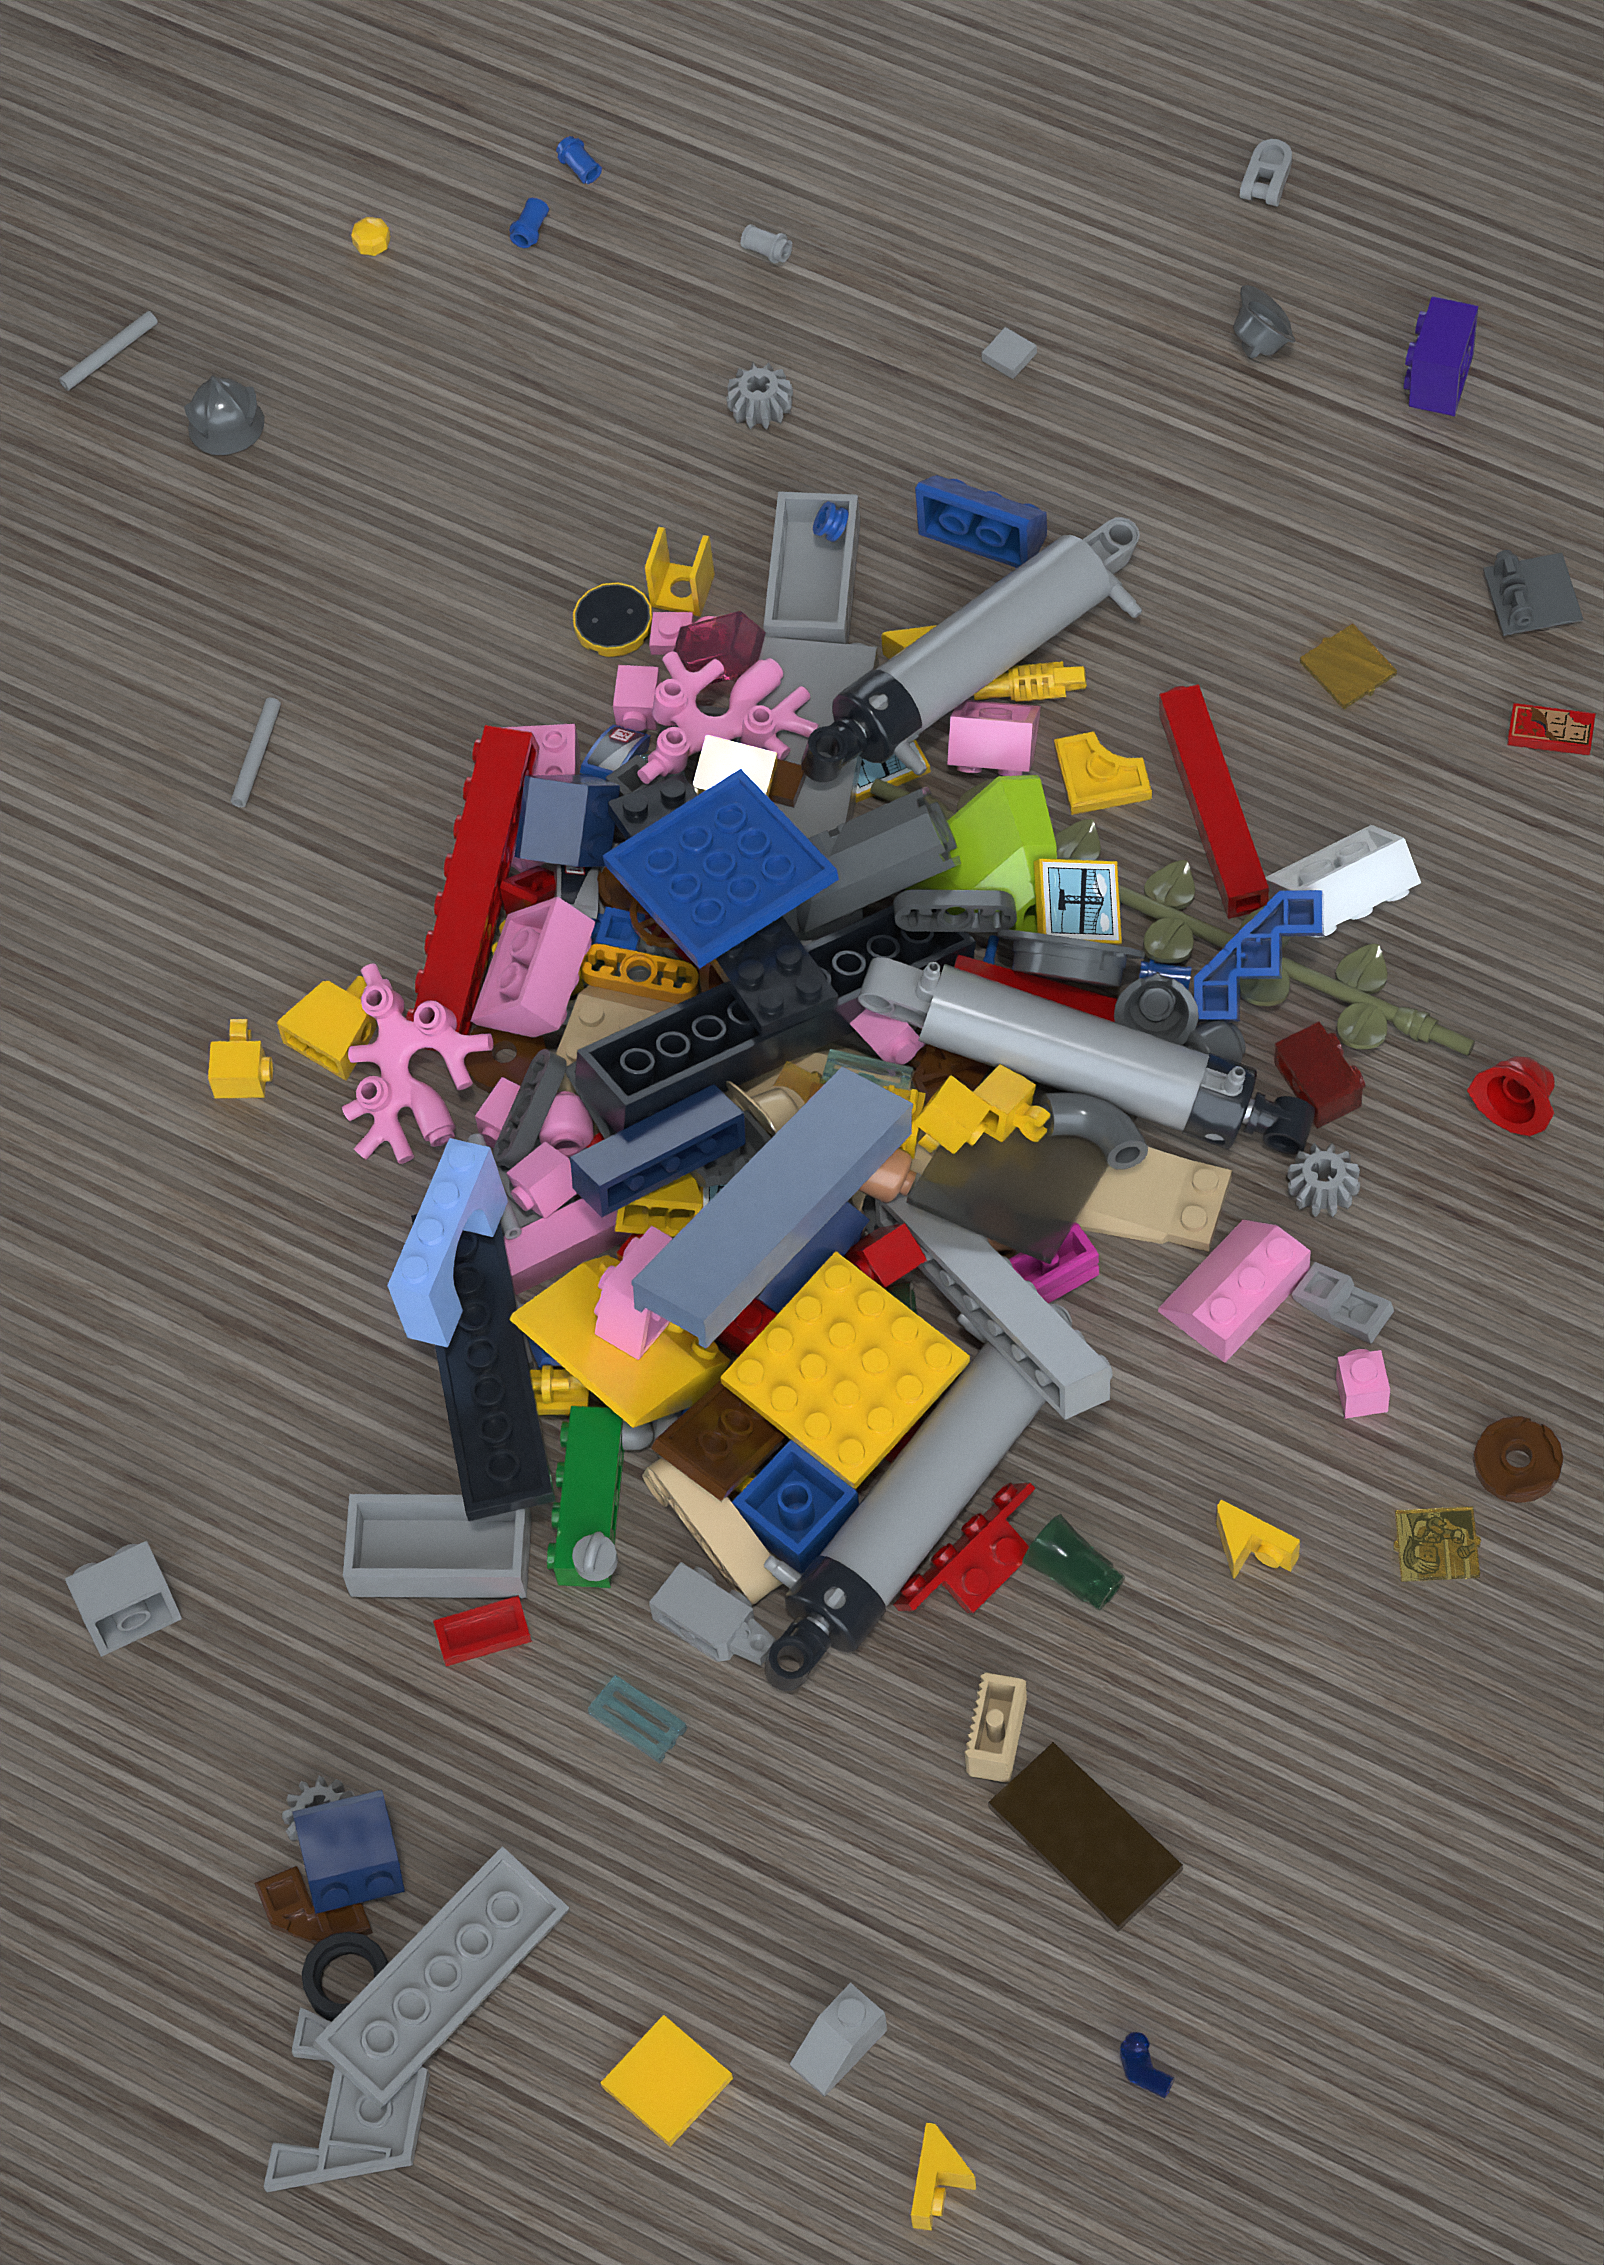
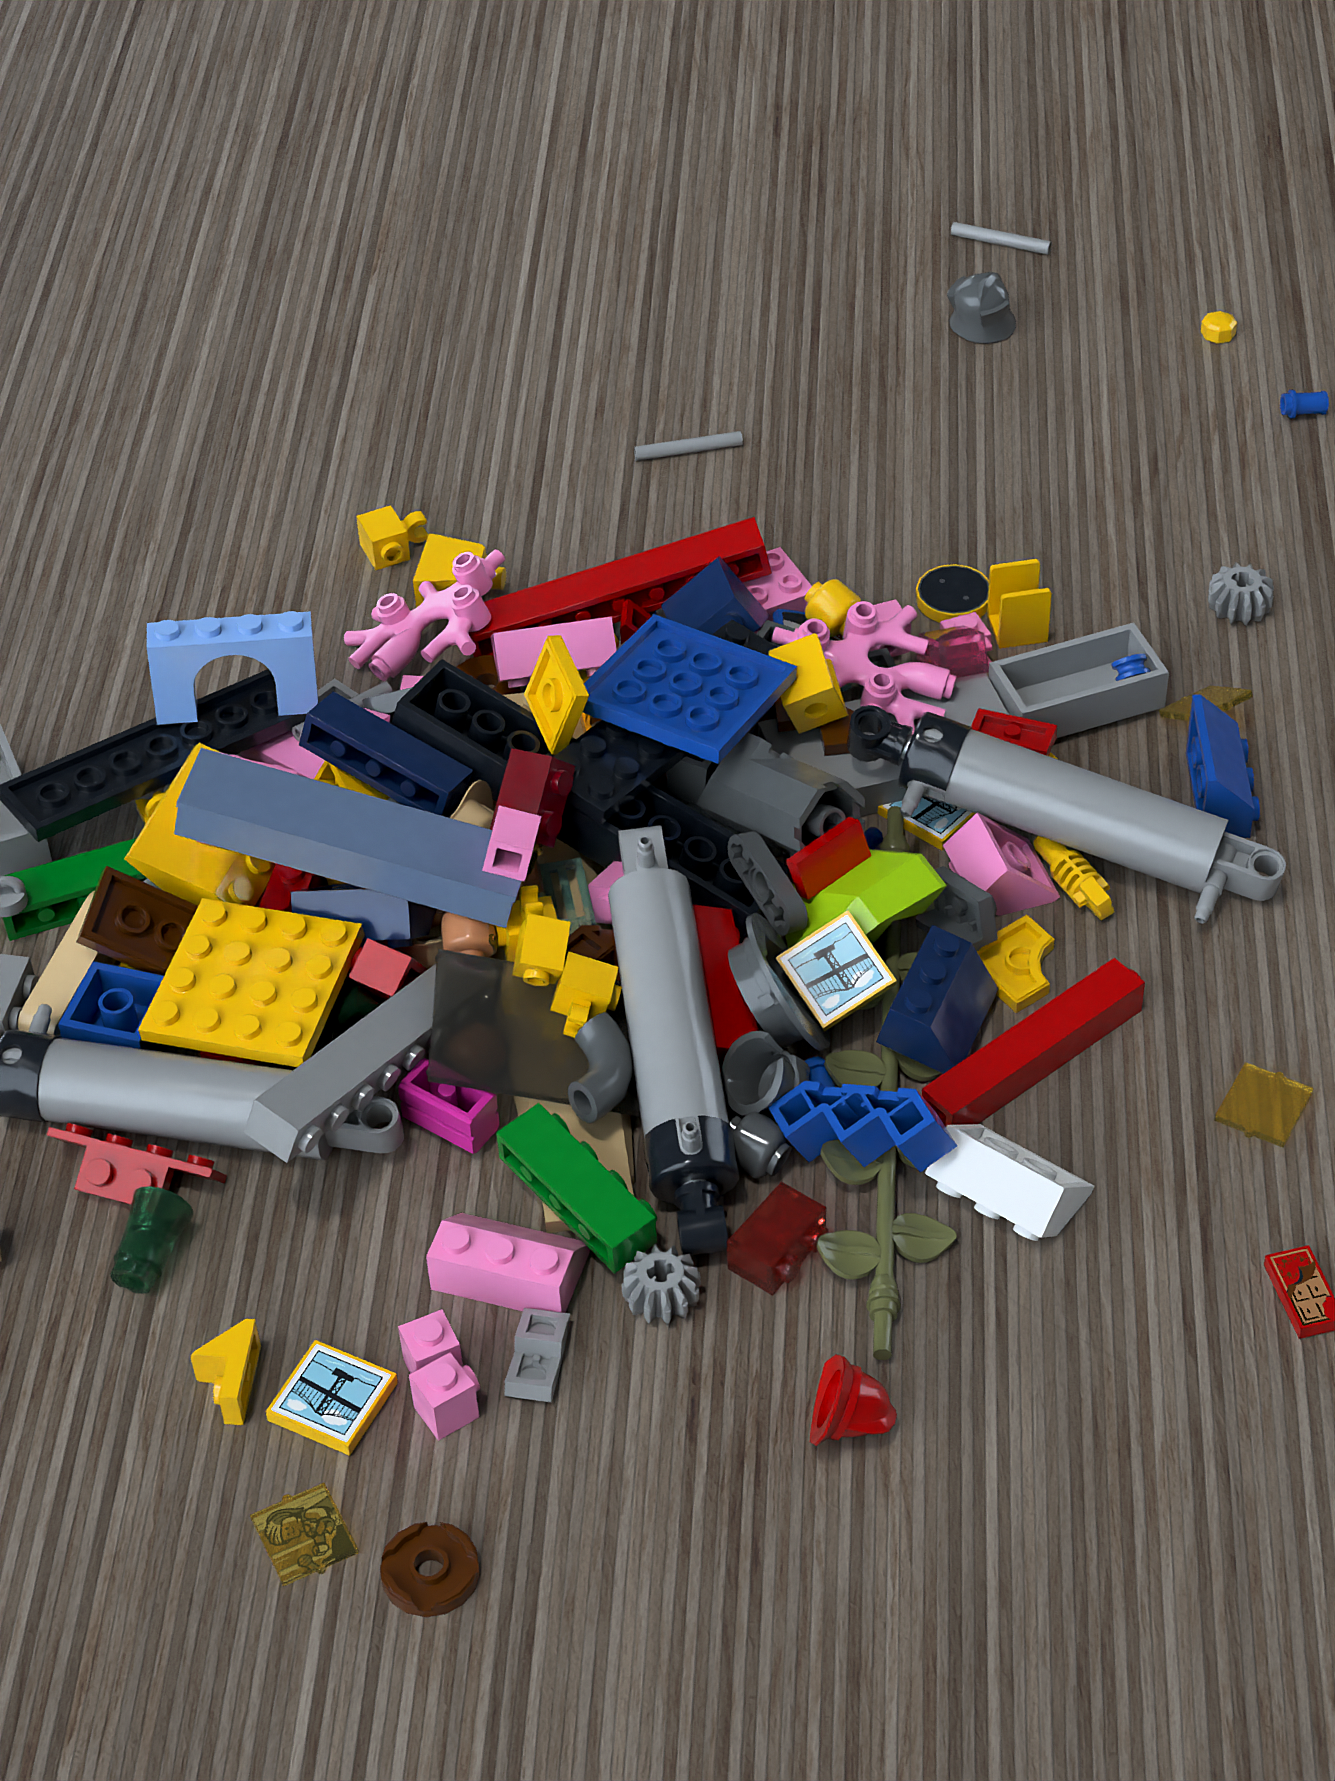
camera: 60 degrees right, 15 degrees down
(613, 718) = (830, 604): none -> yellow head
(692, 970) = (556, 694): none -> yellow plate
(795, 1044) = (538, 787): none -> dark red brick
(859, 1077) = (511, 843): none -> bright pink brick
(867, 647) = (1017, 730): none -> red plate
(886, 488) = (1222, 697): none -> clear yellow piece
(964, 848) = (828, 857): none -> red tile
(1060, 777) = (962, 911): none -> dark grey bracket
(1148, 857) = (940, 1003): none -> dark blue slope
(1204, 1198) = (577, 1187): none -> green brick
(1310, 1475) = (332, 1397): none -> tile
(1311, 1378) = (428, 1340): none -> bright pink brick

